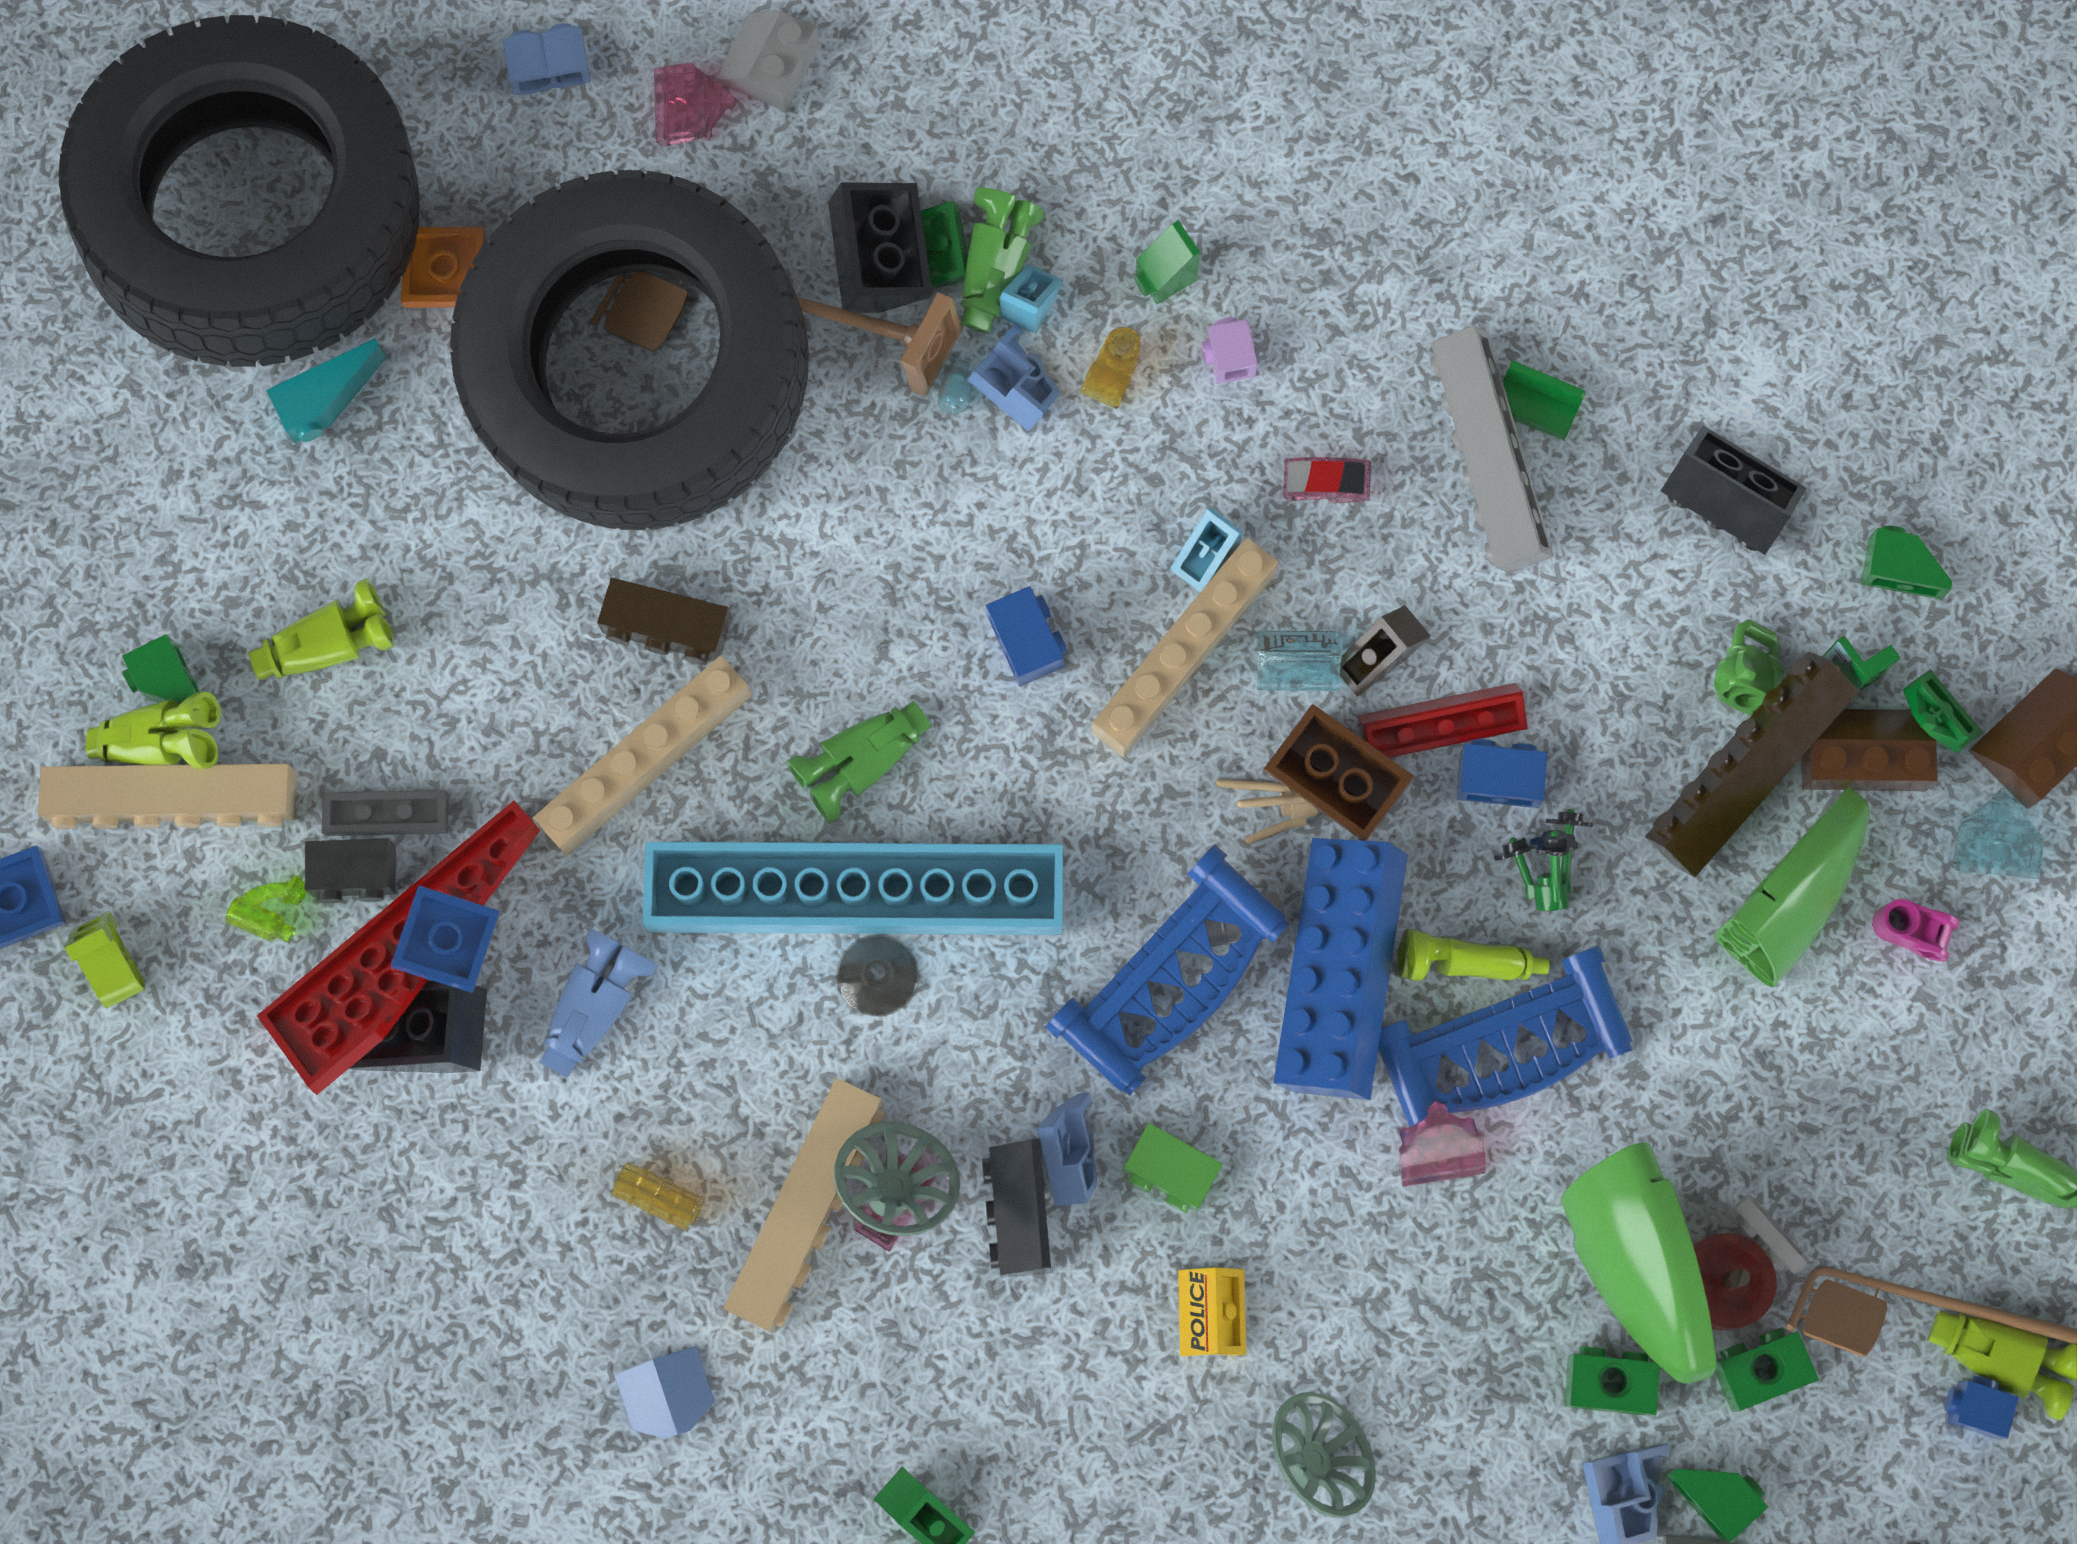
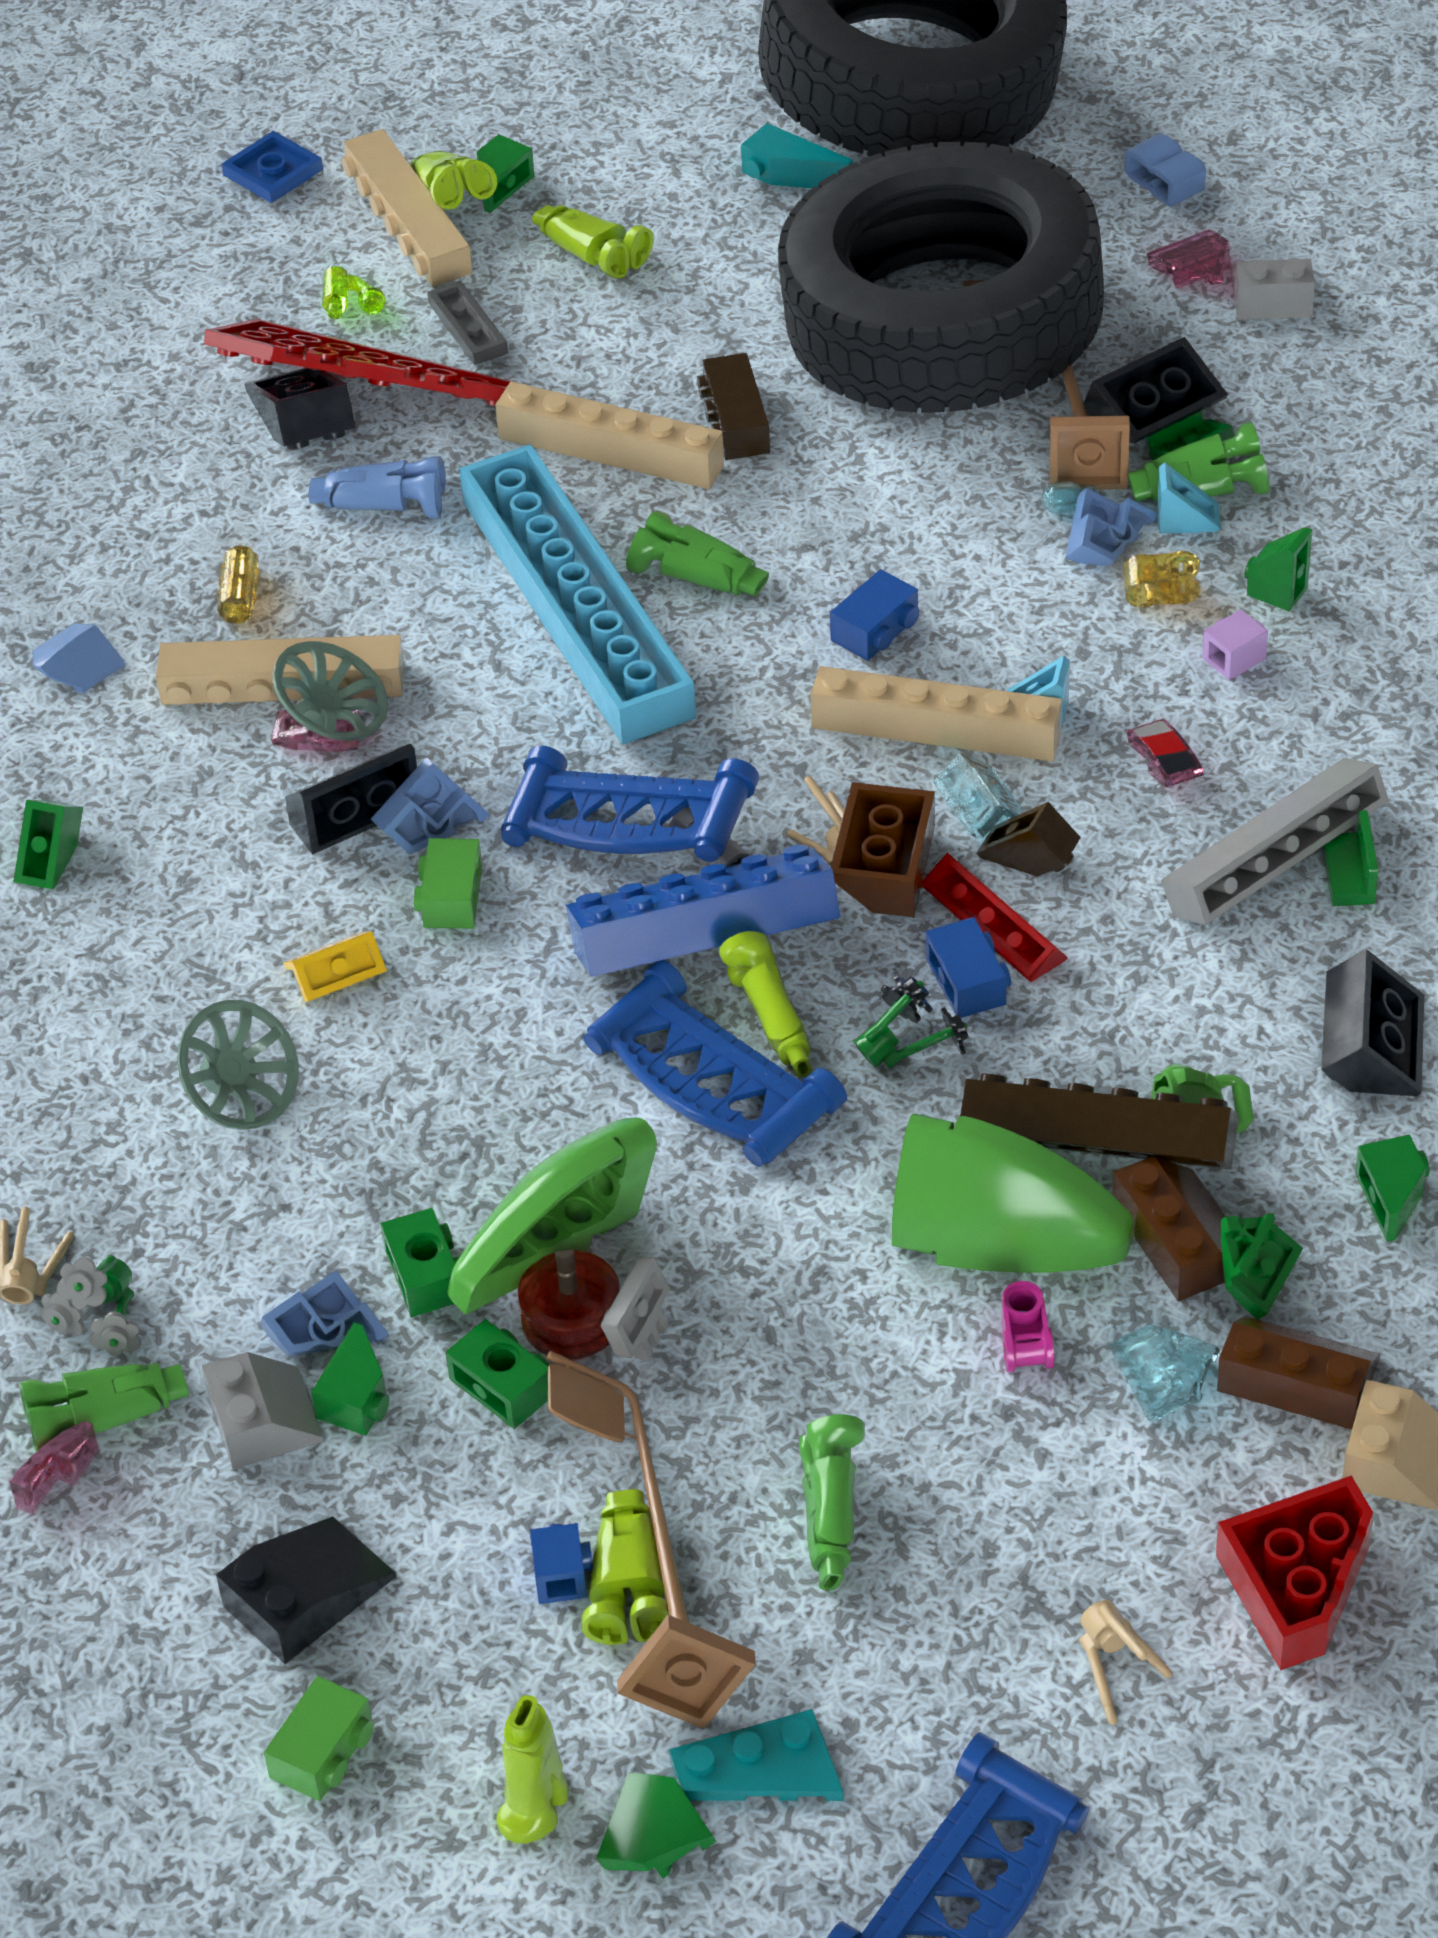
camera: 65 degrees right, 30 degrees down
(105, 960) = (252, 219): lime tile -> none
(350, 869) = (408, 318): pearl dark grey brick -> none
(445, 939) = (373, 356): blue plate -> none
(880, 996) = (513, 650): clear smoke dish -> none
(1440, 1148) = (577, 1051): clear pink slope -> none
(1856, 670) = (1256, 1173): green panel -> none

